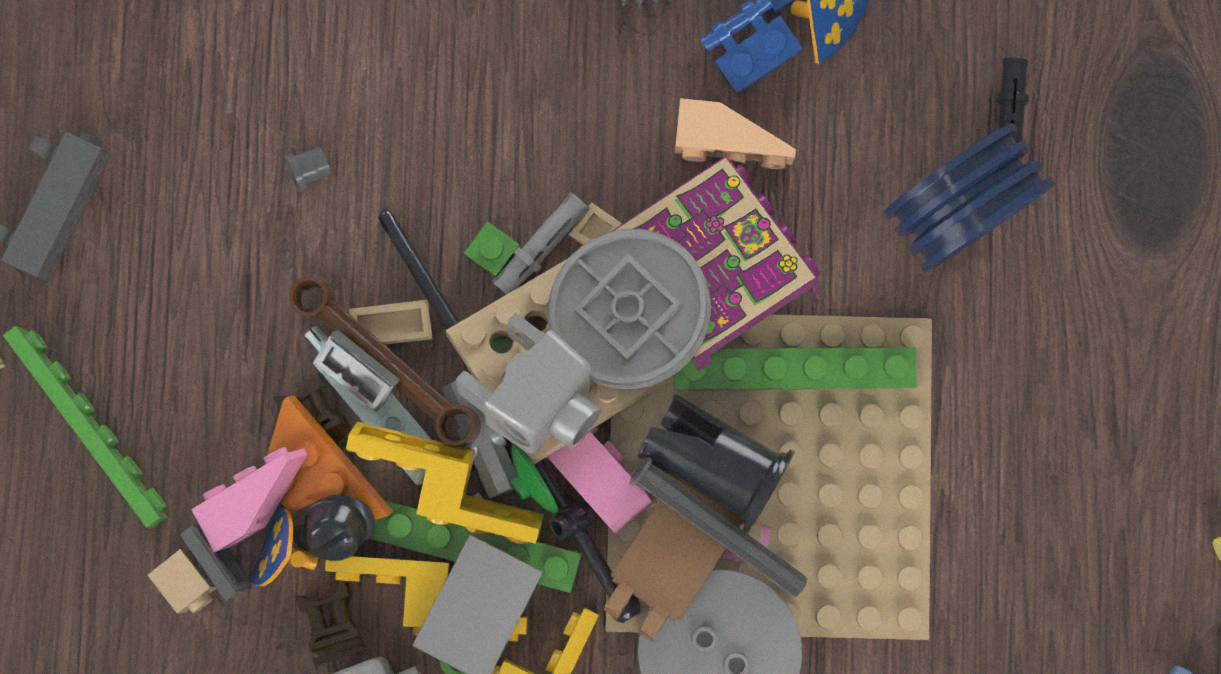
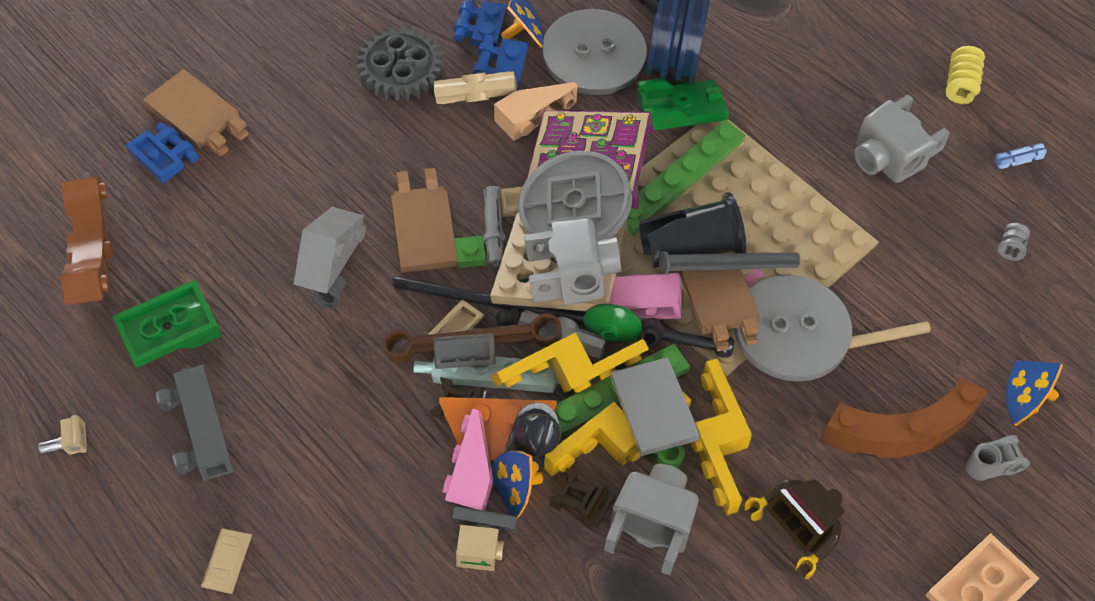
camera: 50 degrees left, 25 degrees down
(87, 56) = (182, 308): none -> green piece
(96, 438) = (330, 517): bright green plate -> none
(339, 121) = (327, 247): none -> light grey wedge
(447, 367) = (508, 318): none -> black piece
(475, 172) = (423, 225): none -> medium nougat tile
(688, 54) = (475, 87): none -> tan piece
(867, 274) = (663, 101): none -> green piece
(876, 118) = (594, 51): none -> light grey plate
(1069, 550) = (896, 142): none -> light grey piece

